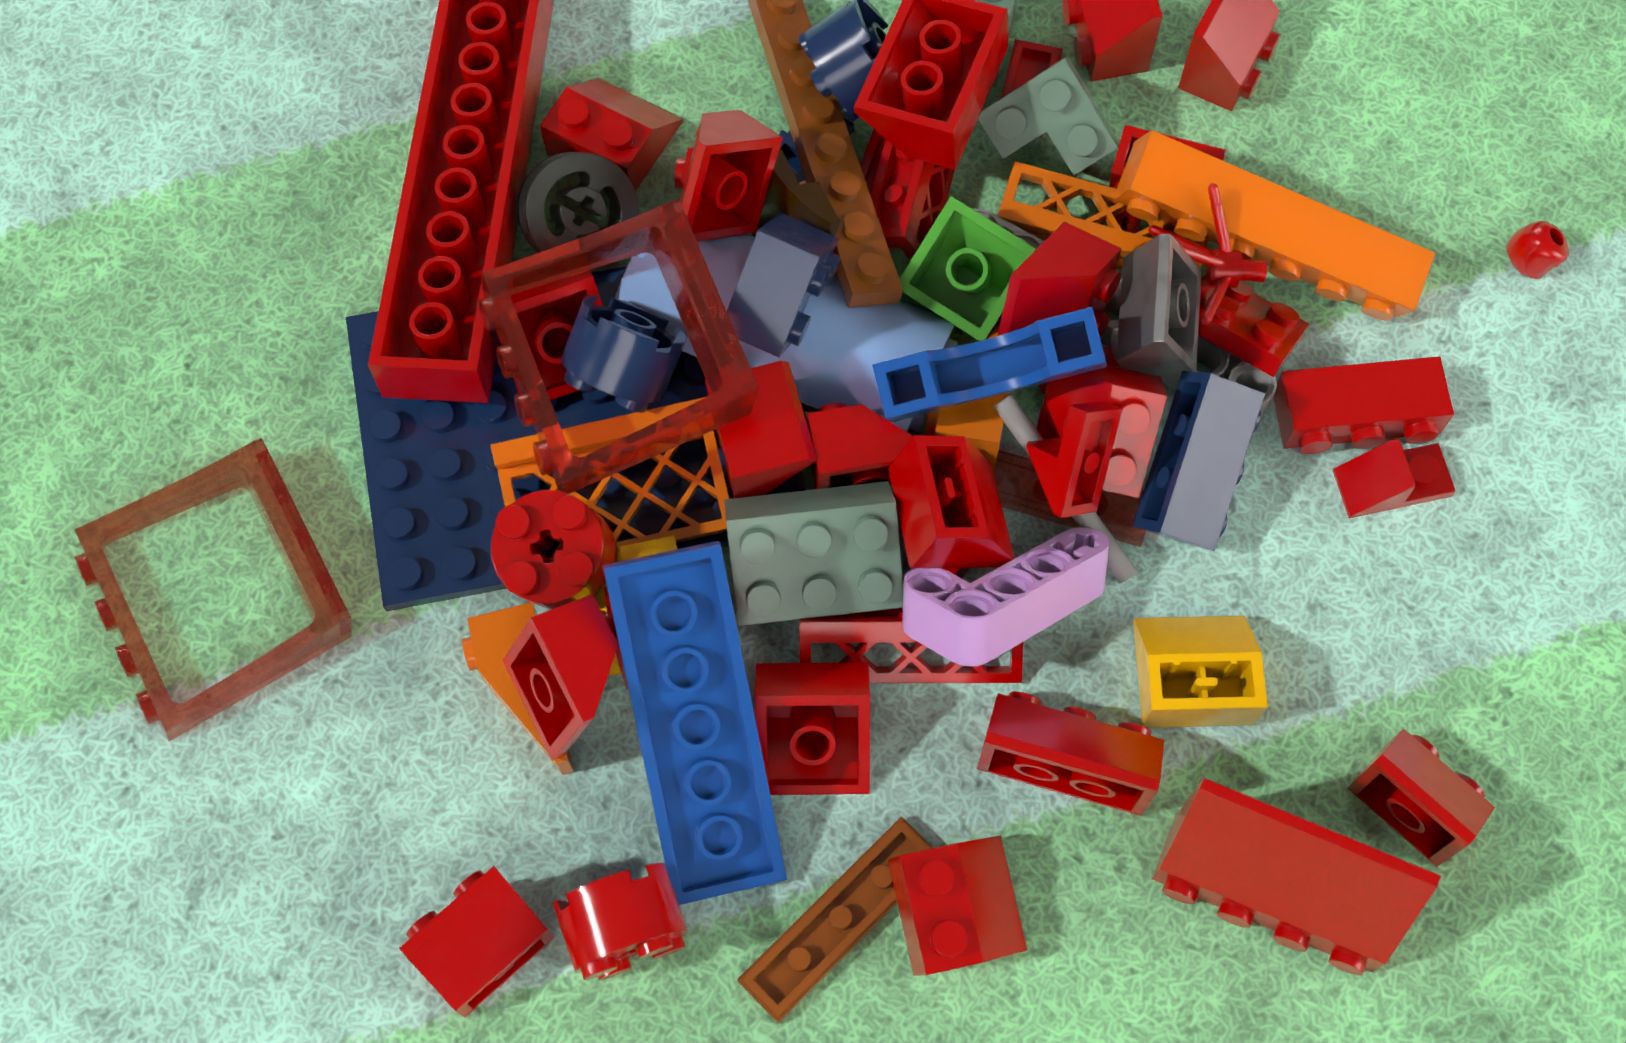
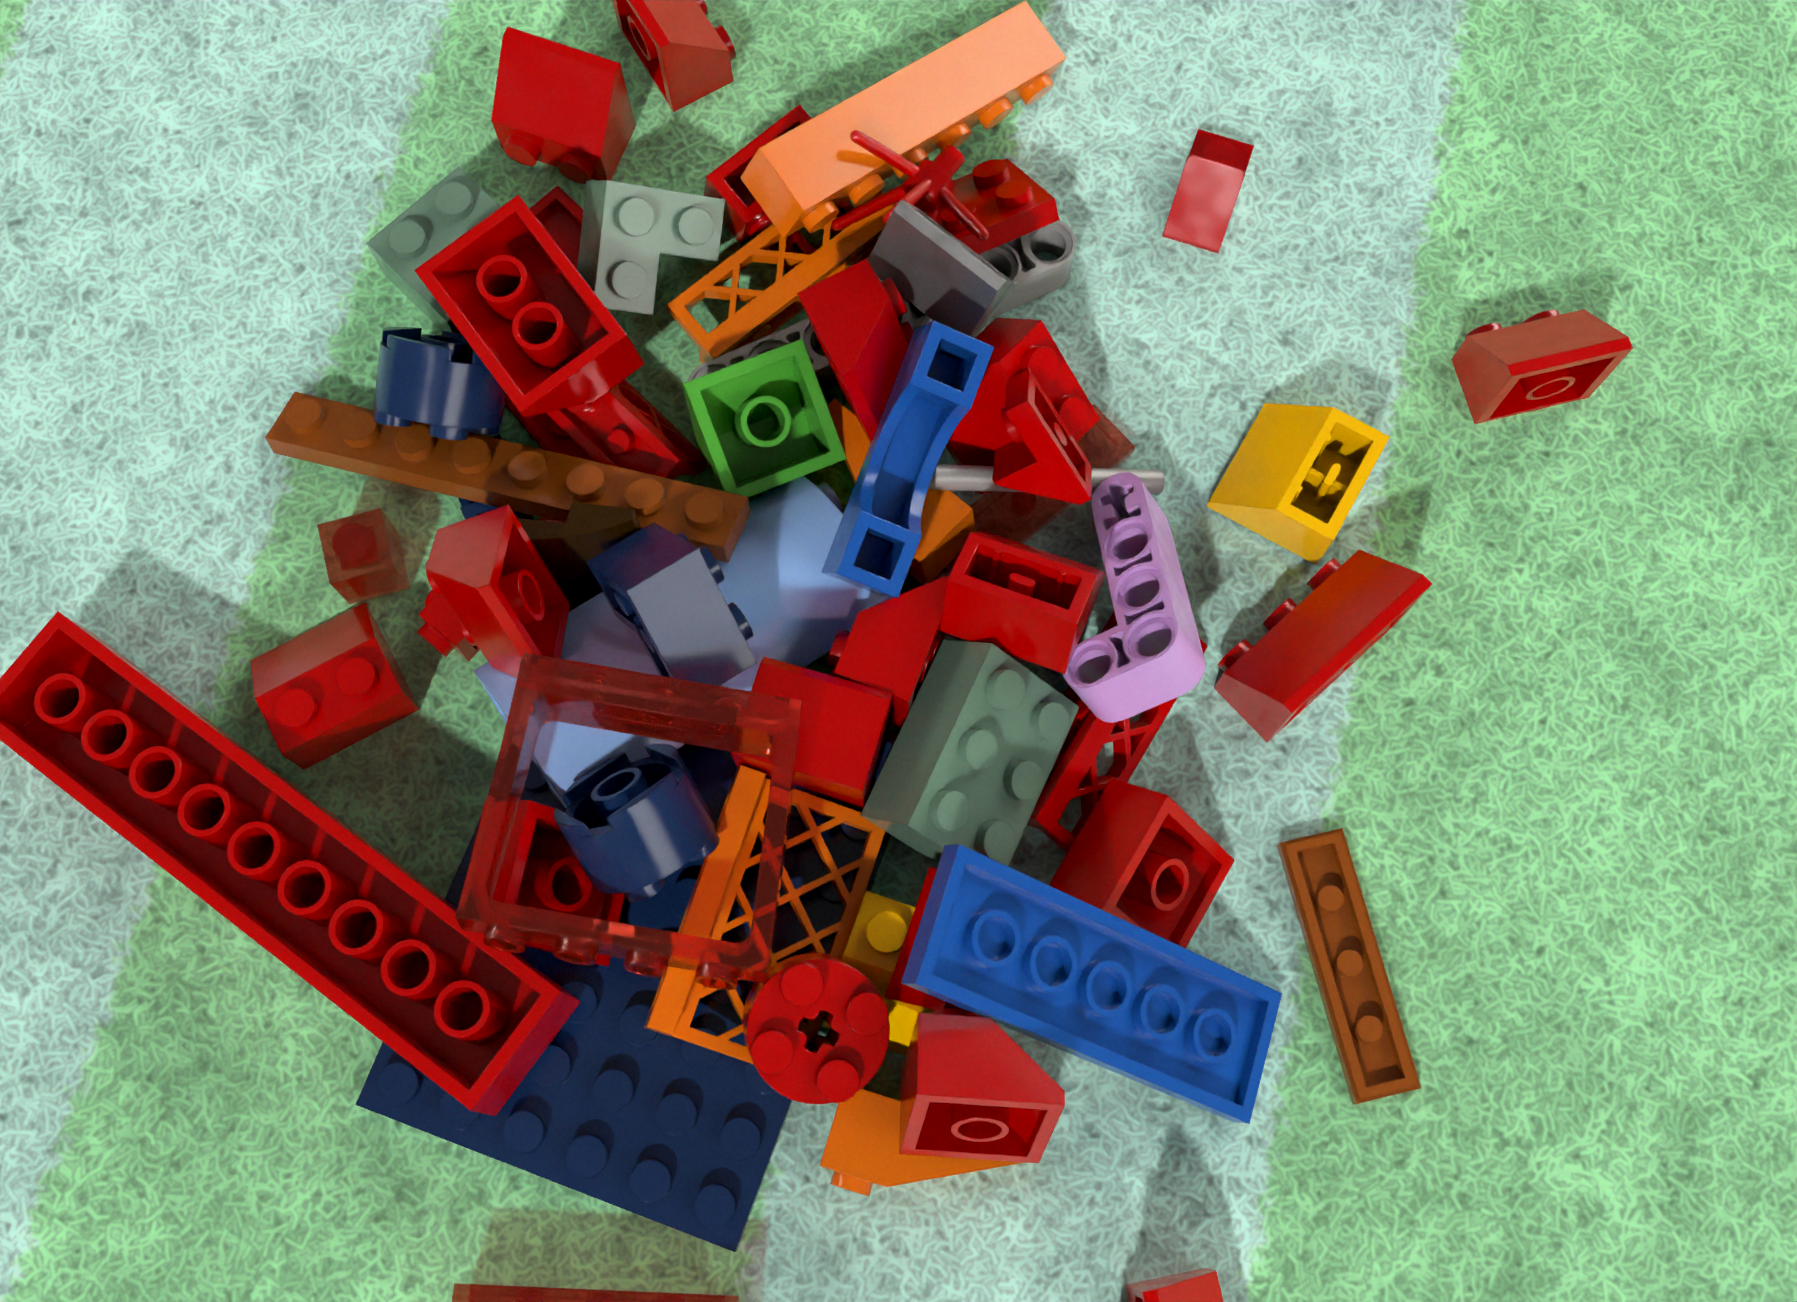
camera: 60 degrees left, 5 degrees up
(594, 175) = (438, 801): pearl dark grey wheel -> none
(620, 919) = (1251, 1189): red brick -> none
(706, 88) = (363, 556): none -> clear red brick
(957, 905) = (1408, 848): red slope -> none
(1199, 459) = (1104, 339): brick -> none
(1291, 878) = (1561, 526): red slope -> none
(1362, 404) = (1125, 164): red brick -> none

